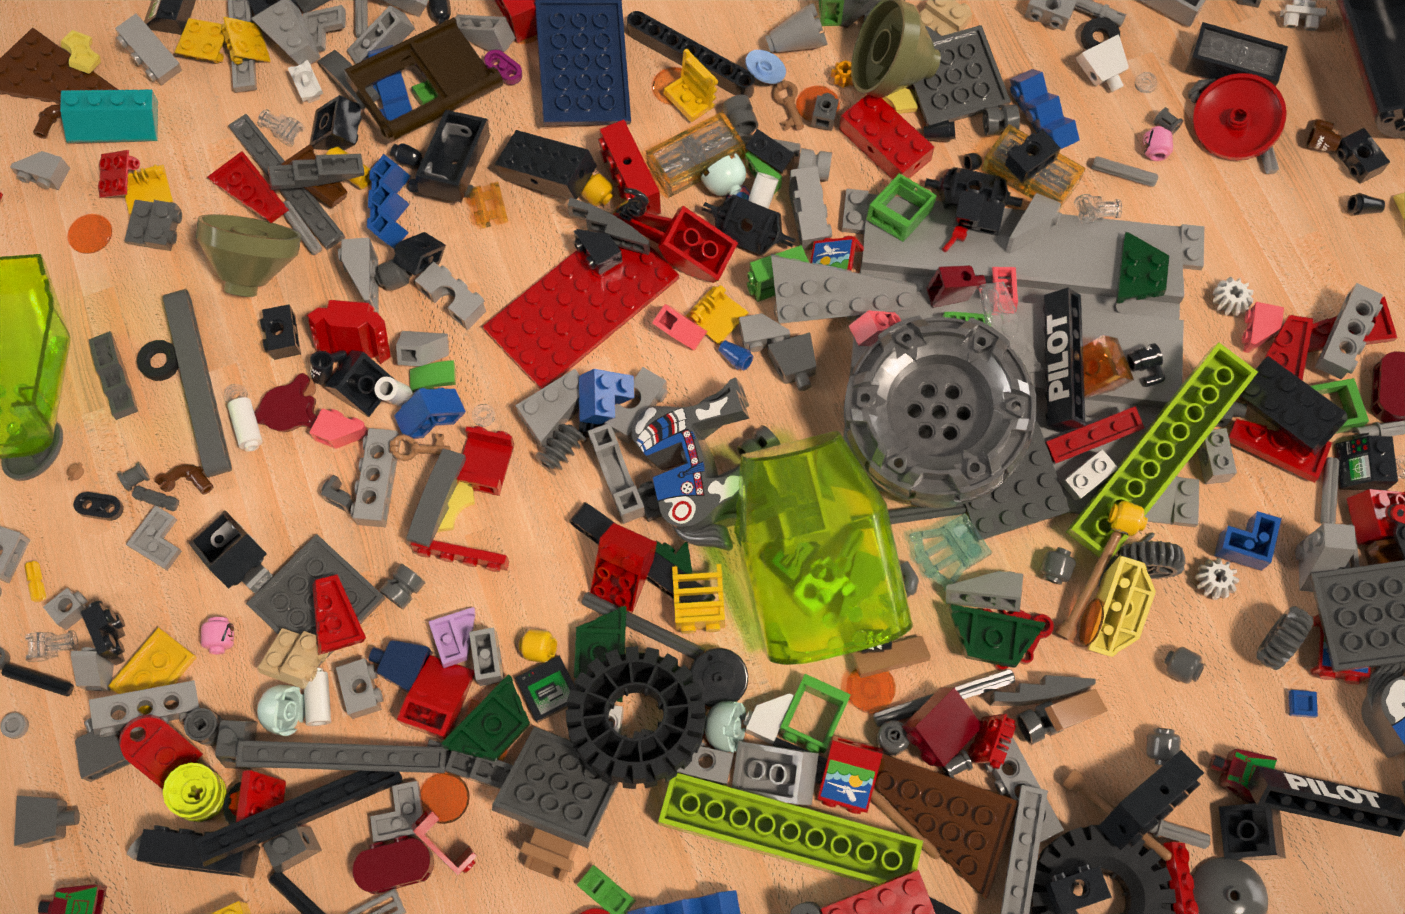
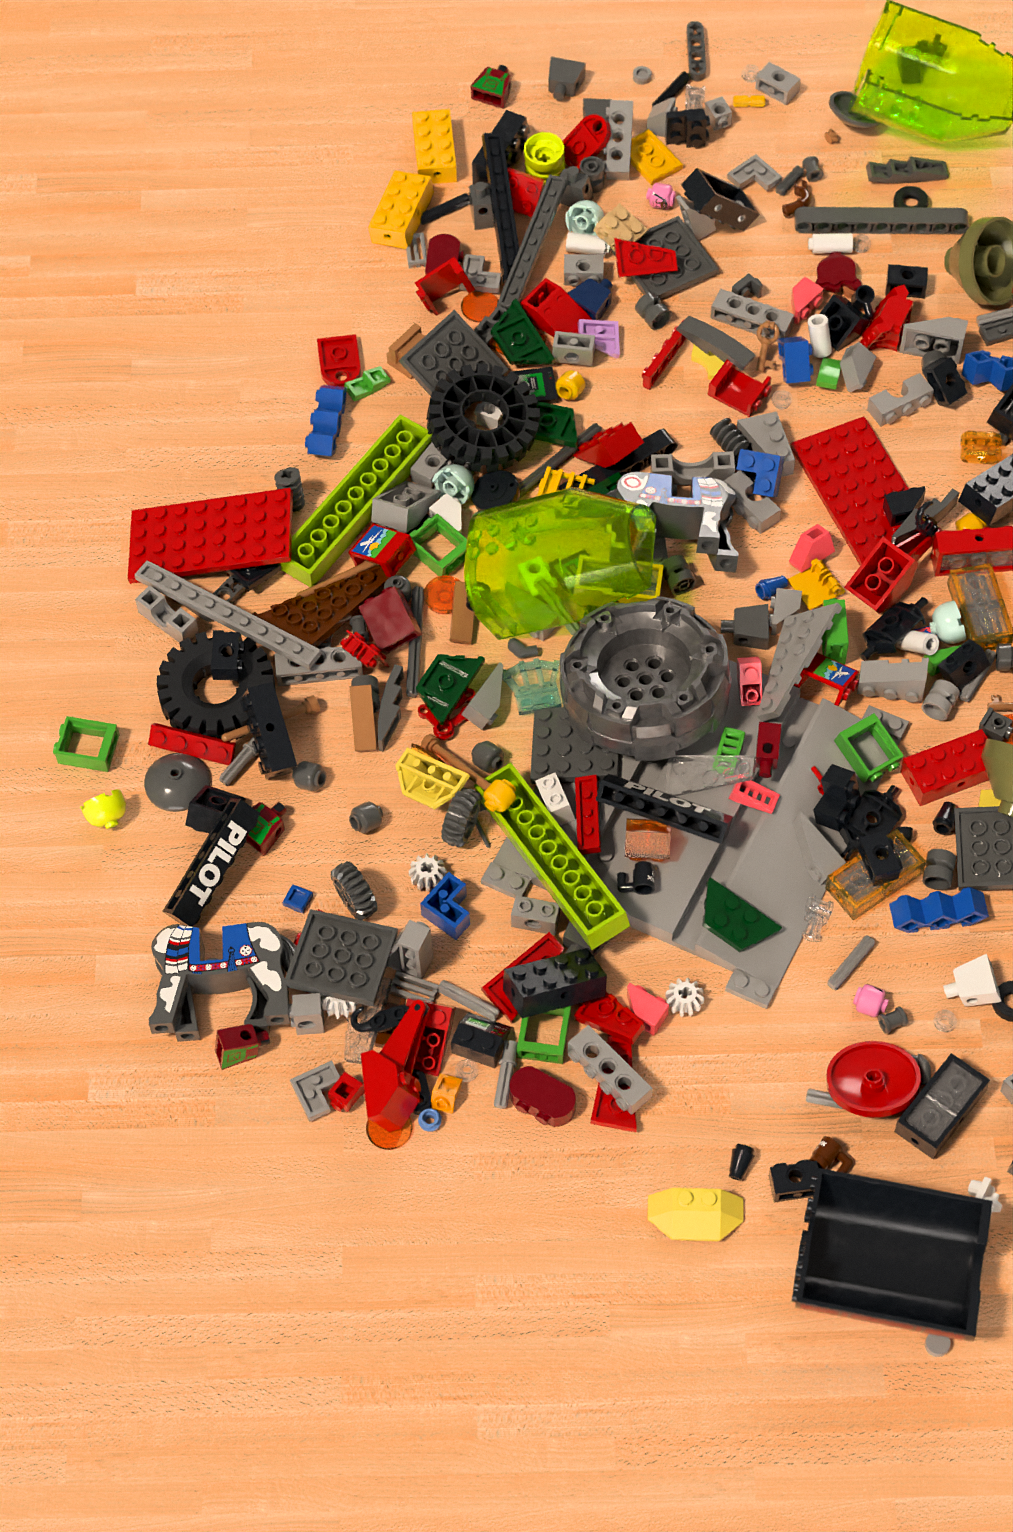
camera: 110 degrees right, 10 degrees down
(100, 506) = (795, 145): black plate -> none

